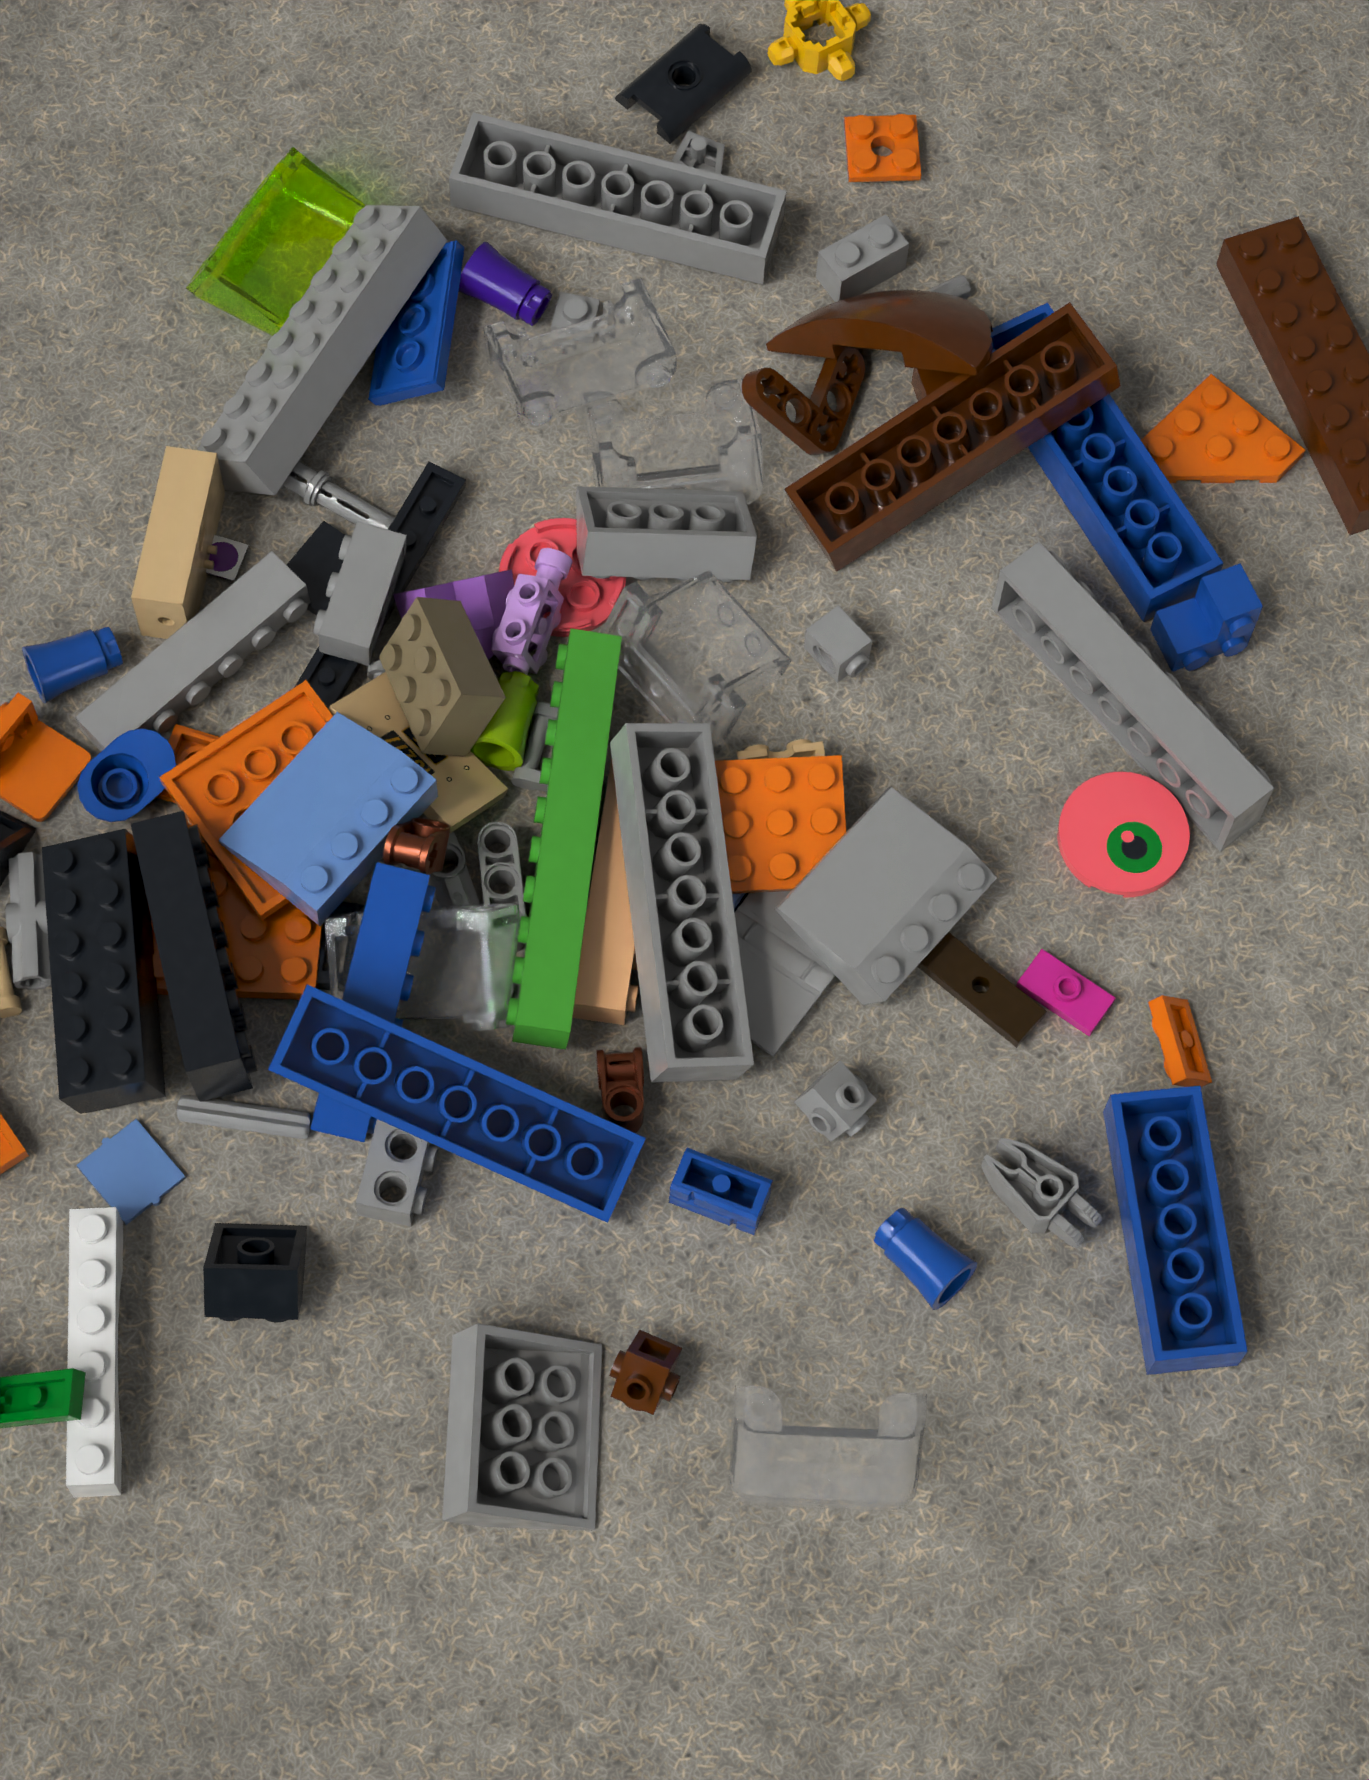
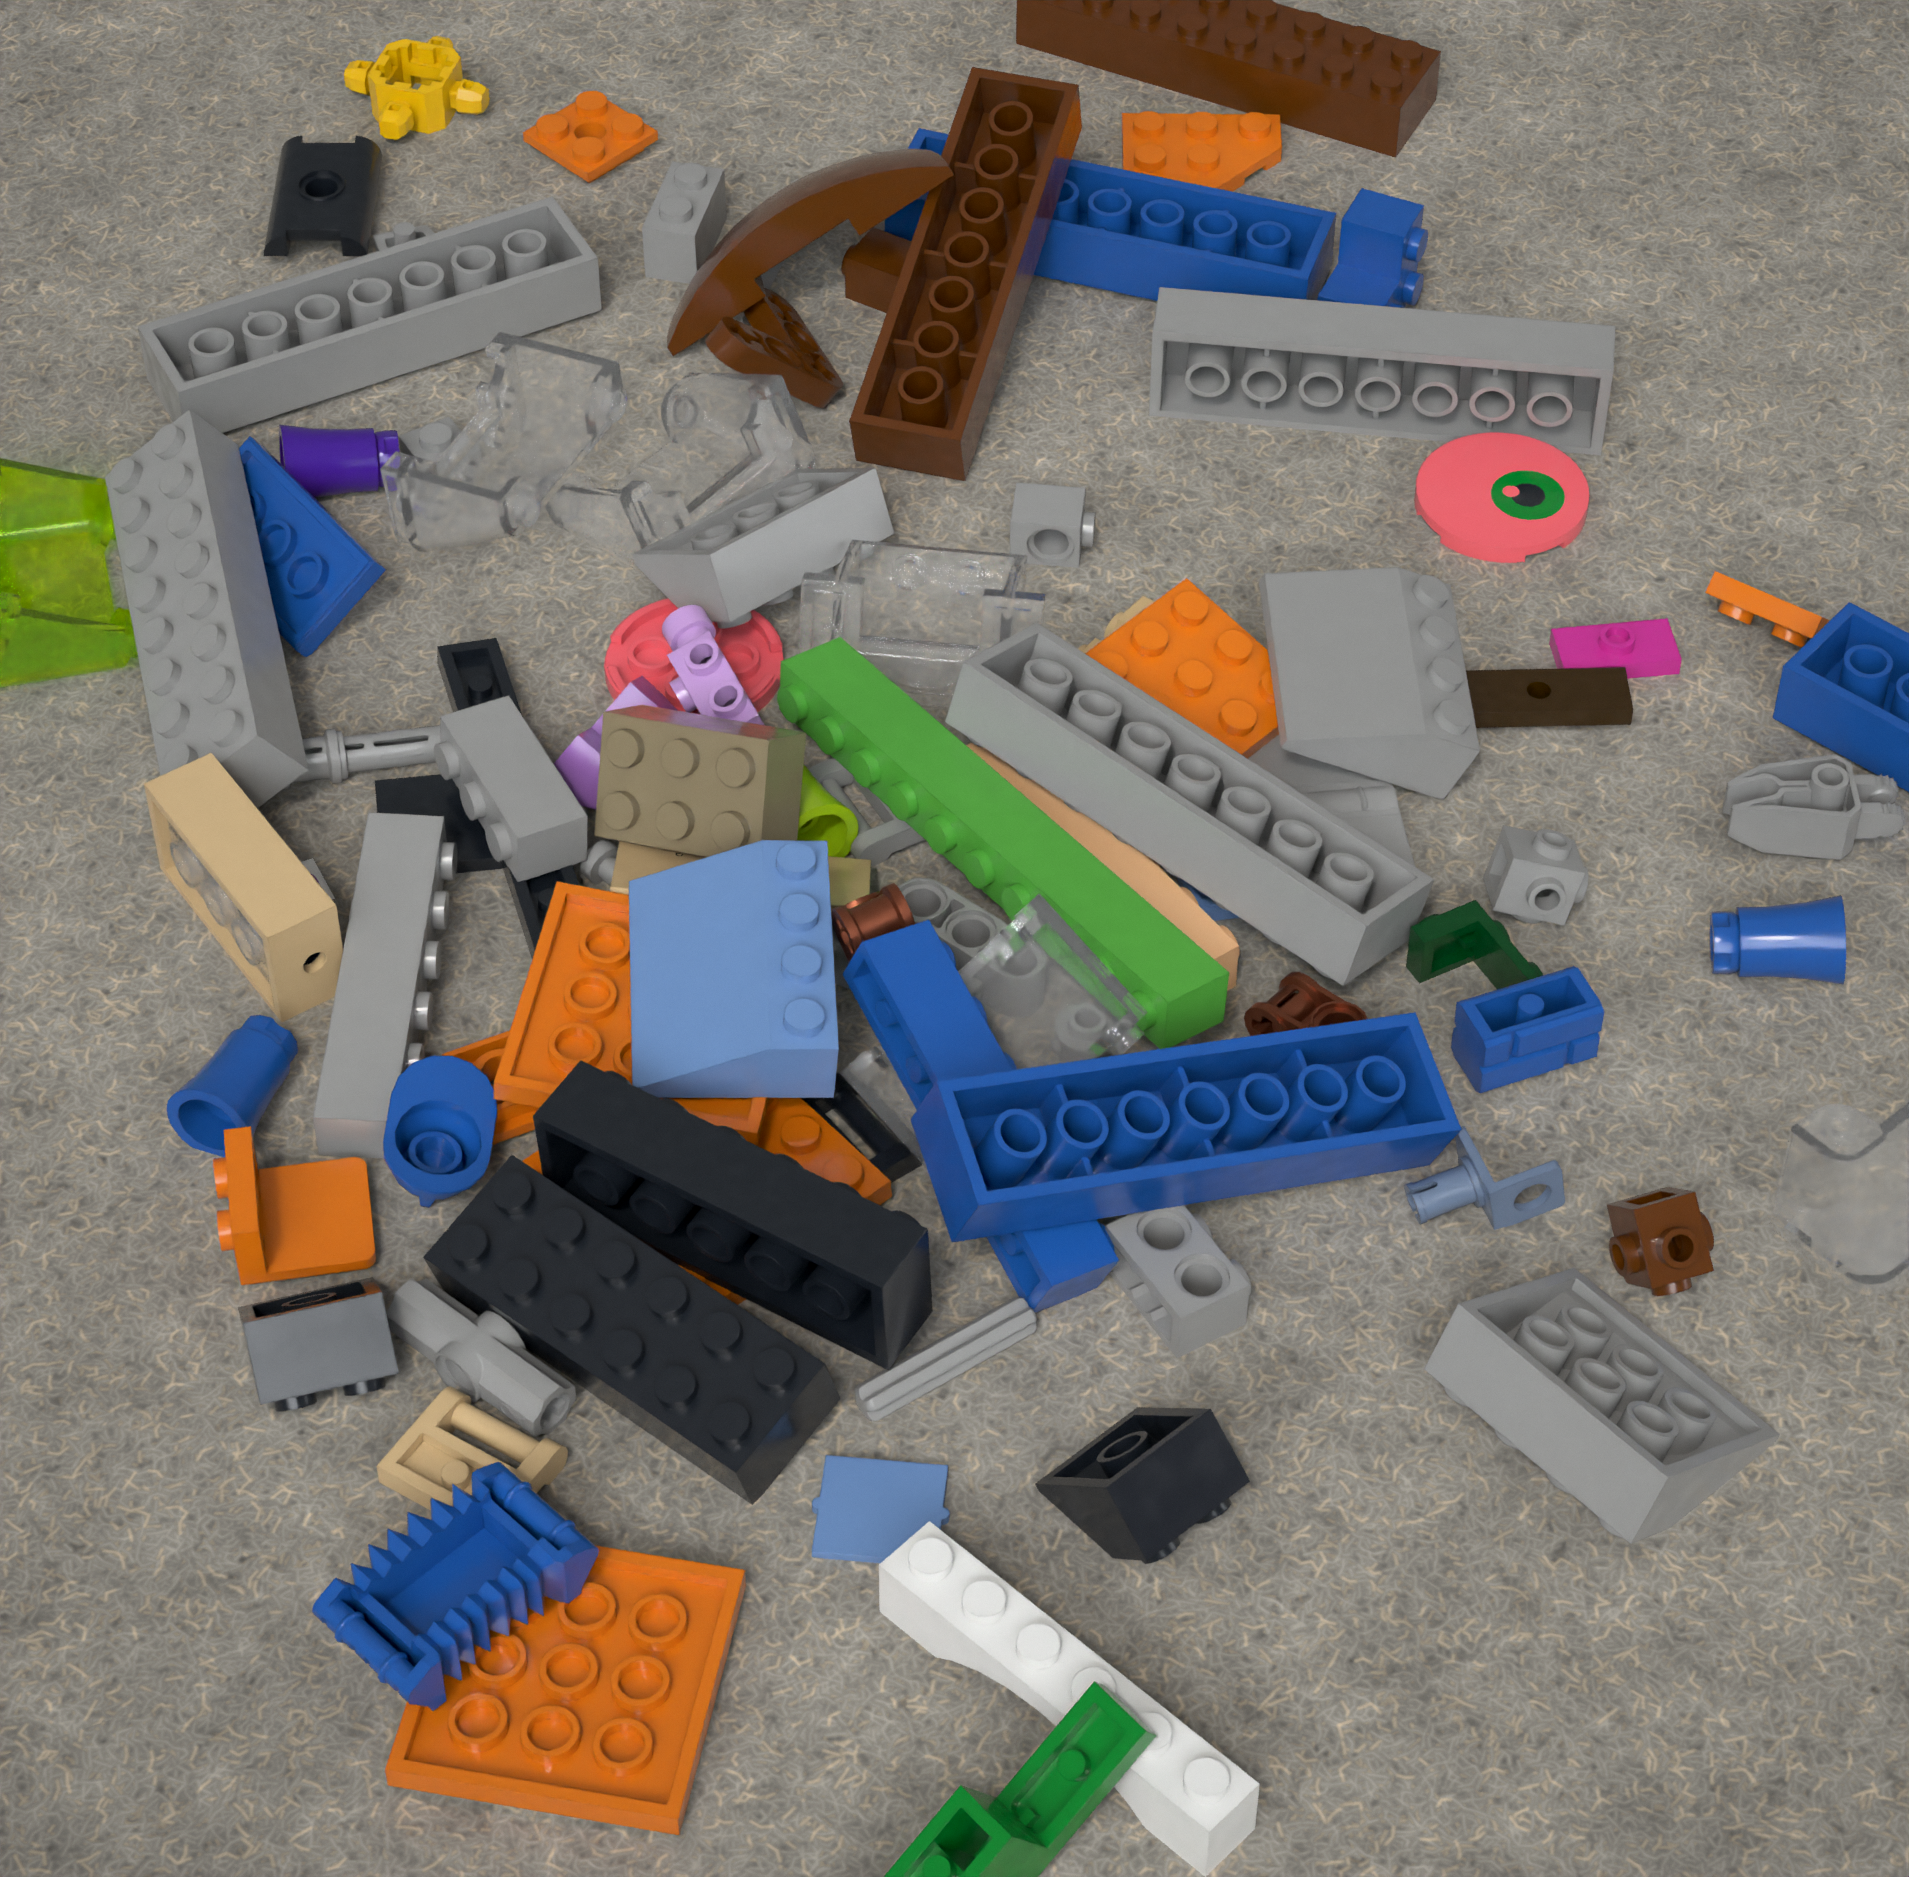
camera: 40 degrees left, 20 degrees down
(599, 1254) = (1474, 1184): none -> sand blue bracket
(750, 1098) = (1465, 936): none -> dark green bracket

